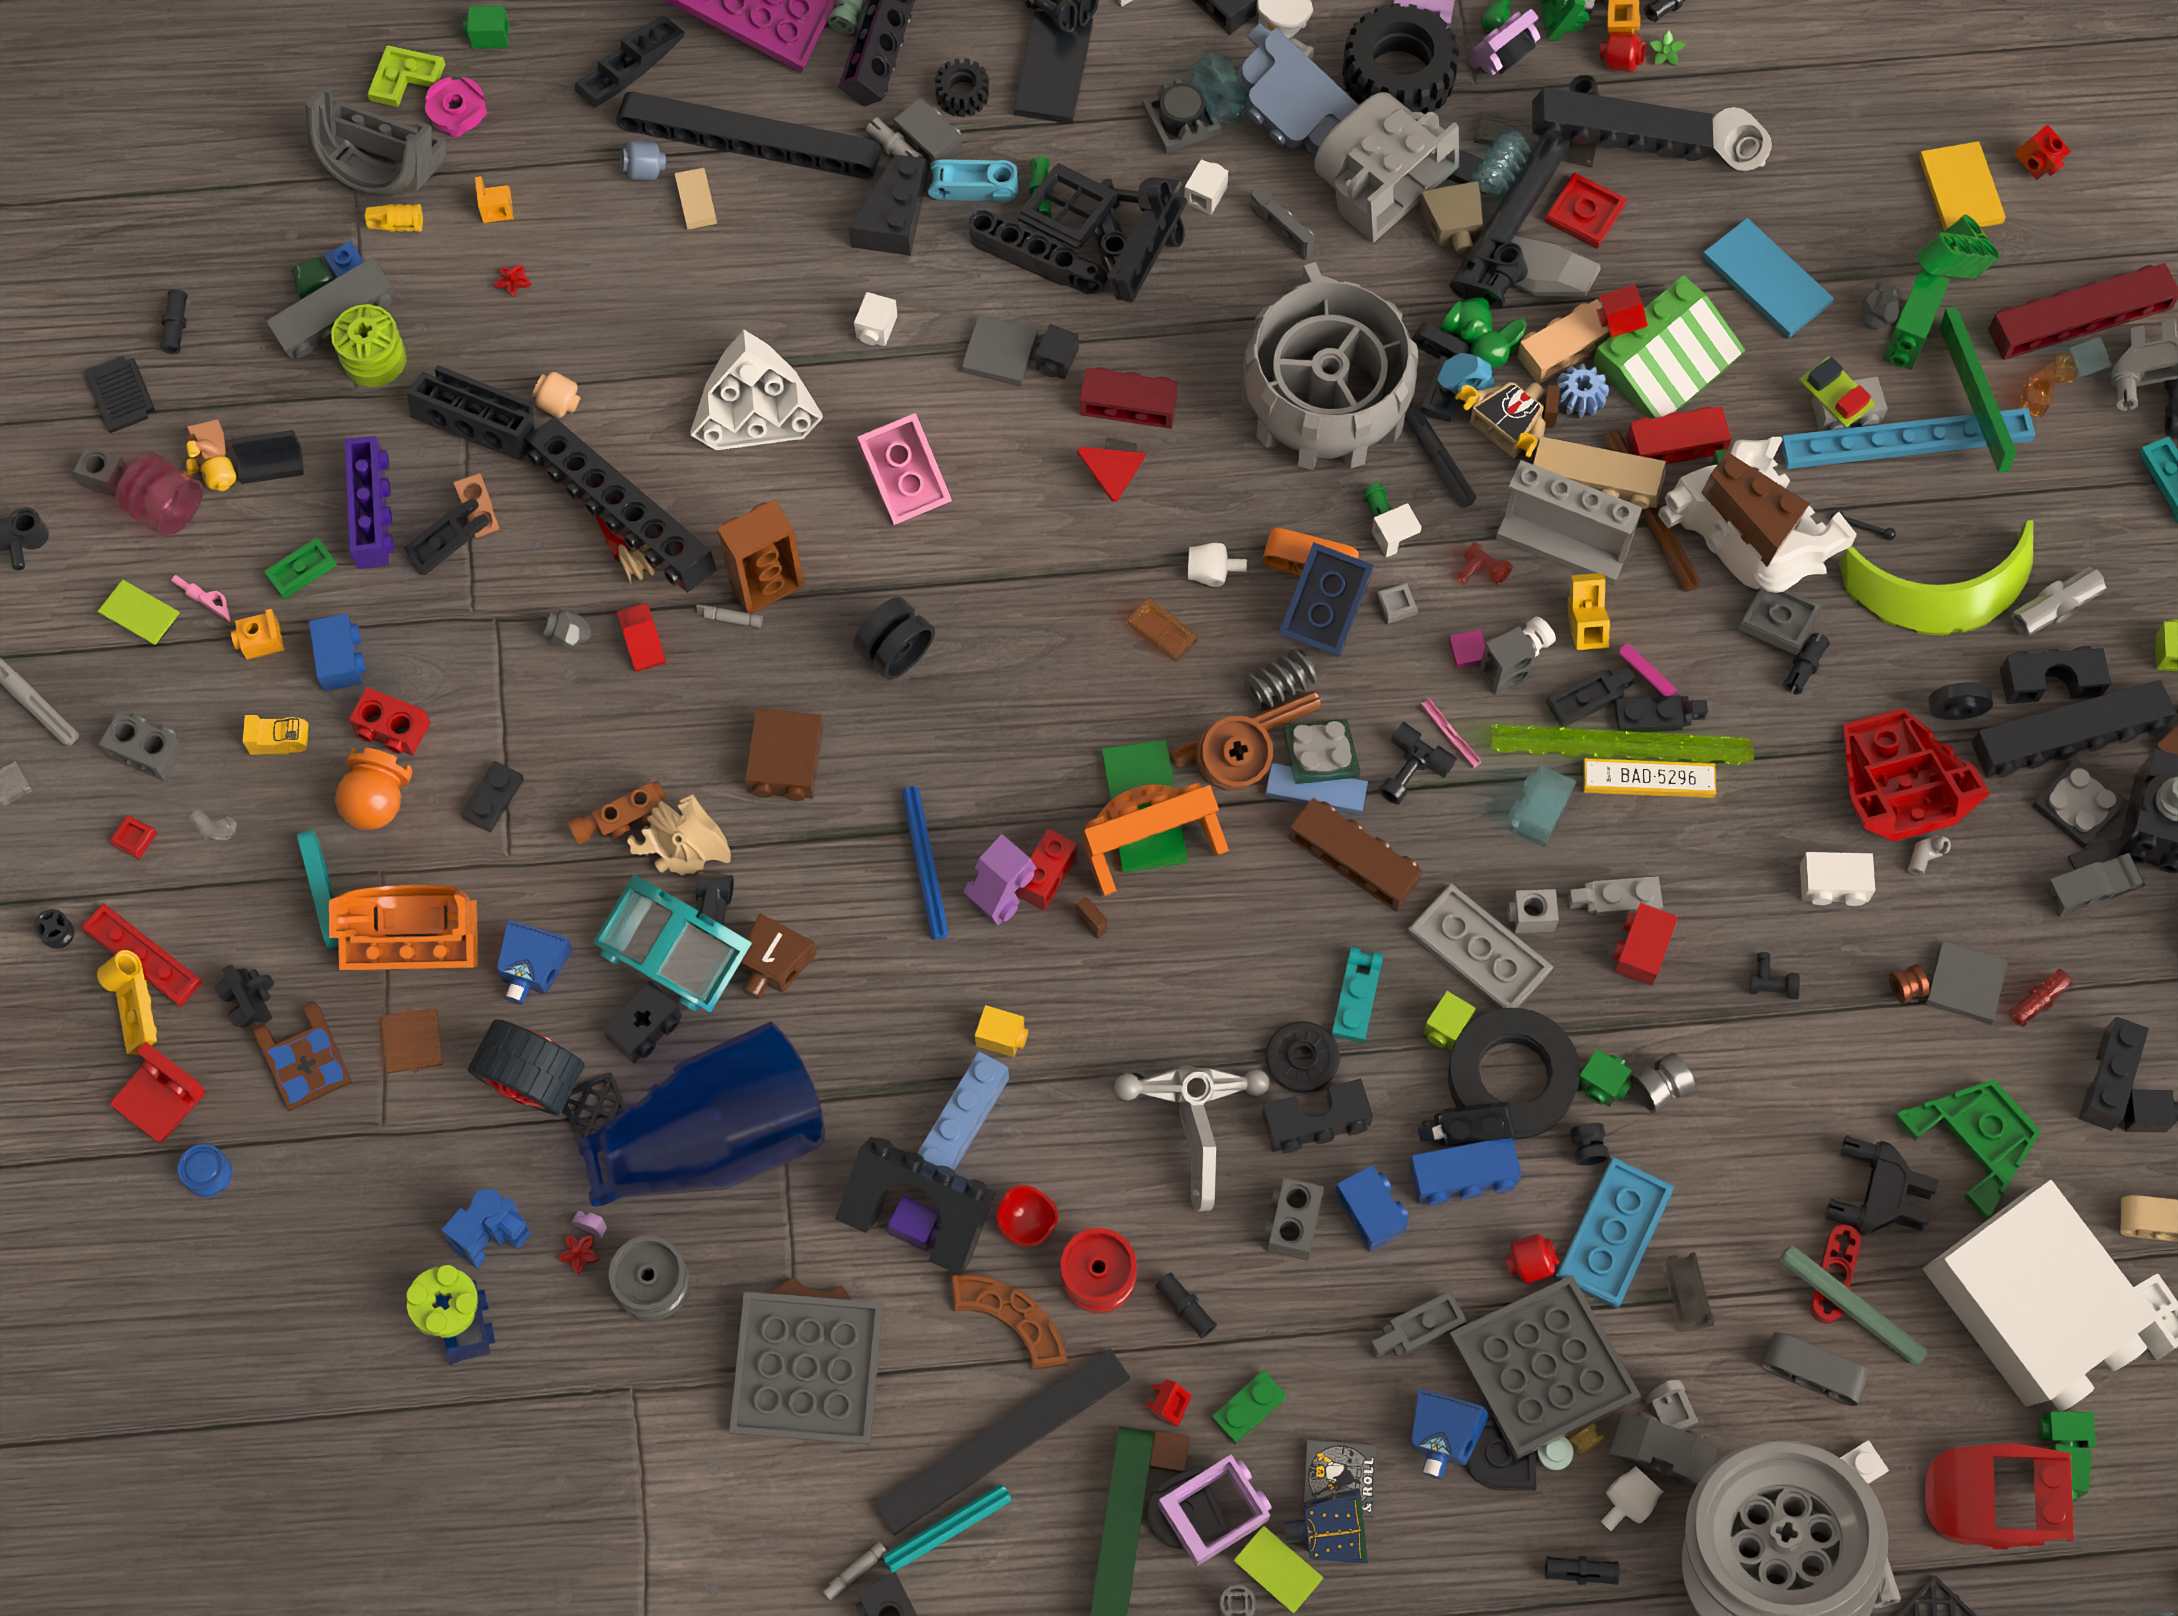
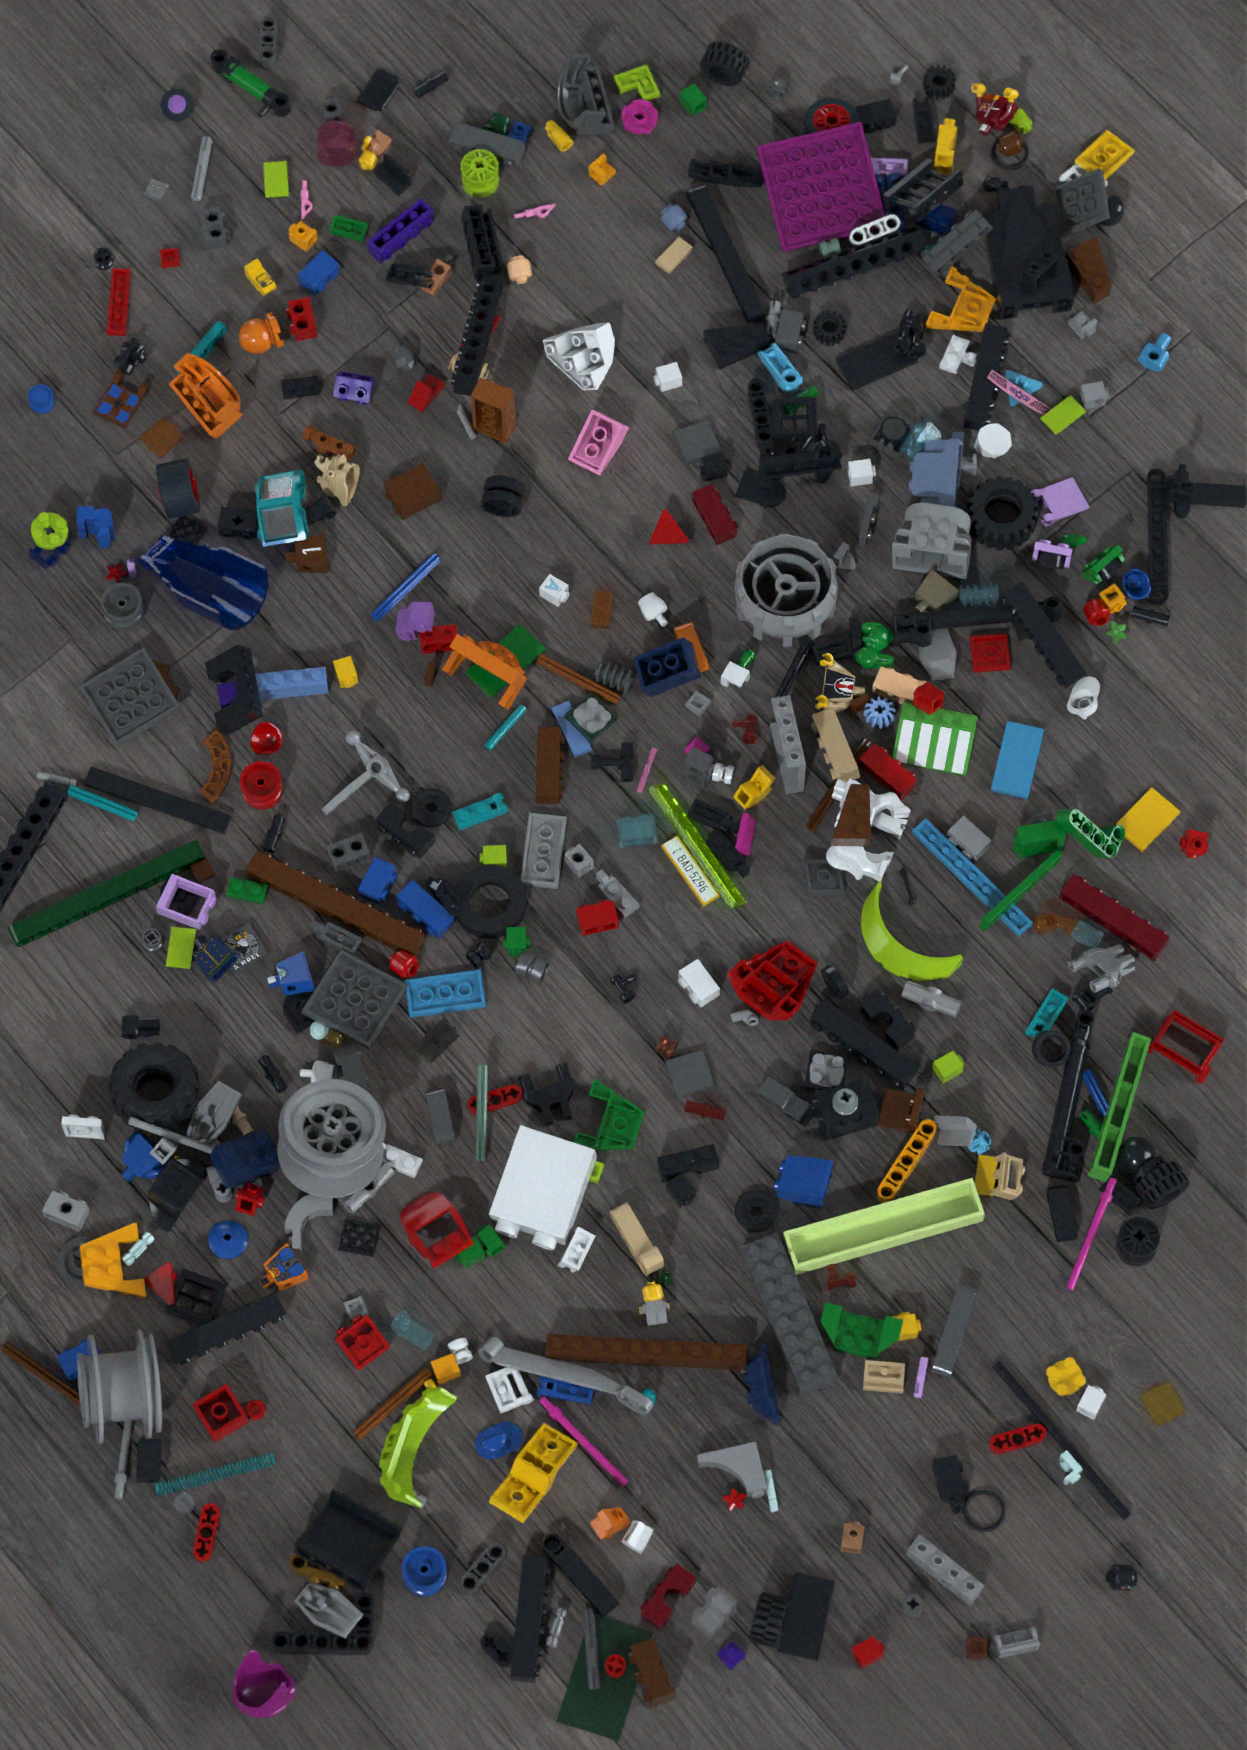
camera: 55 degrees right, 0 degrees up
(125, 977) = (95, 313): yellow plate -> none
(157, 1095) = (60, 355): red bracket -> none
(211, 830) = (197, 287): clear arm -> none
(483, 320) = (536, 211): none -> bright pink hand
(512, 279) = (567, 208): red plant -> none
(530, 960) = (232, 457): blue torso -> none
(558, 721) = (354, 387): none -> dark purple brick
(1087, 670) = (554, 590): none -> white brick
(1132, 323) = (763, 492): none -> black window
(1170, 1402) = (223, 855): red tile -> none
(1248, 874) = (505, 727): none -> teal piece
(1252, 747) = (547, 672): dark orange wheel -> none
(1365, 1294) = (334, 904): none -> reddish brown brick
(1466, 370) = (841, 652): dark azure piece -> none
(1672, 1405) = (377, 1066): light grey tile -> none
(1806, 663) = (806, 903): black pin -> none
(1837, 391) = (966, 826): piece -> none

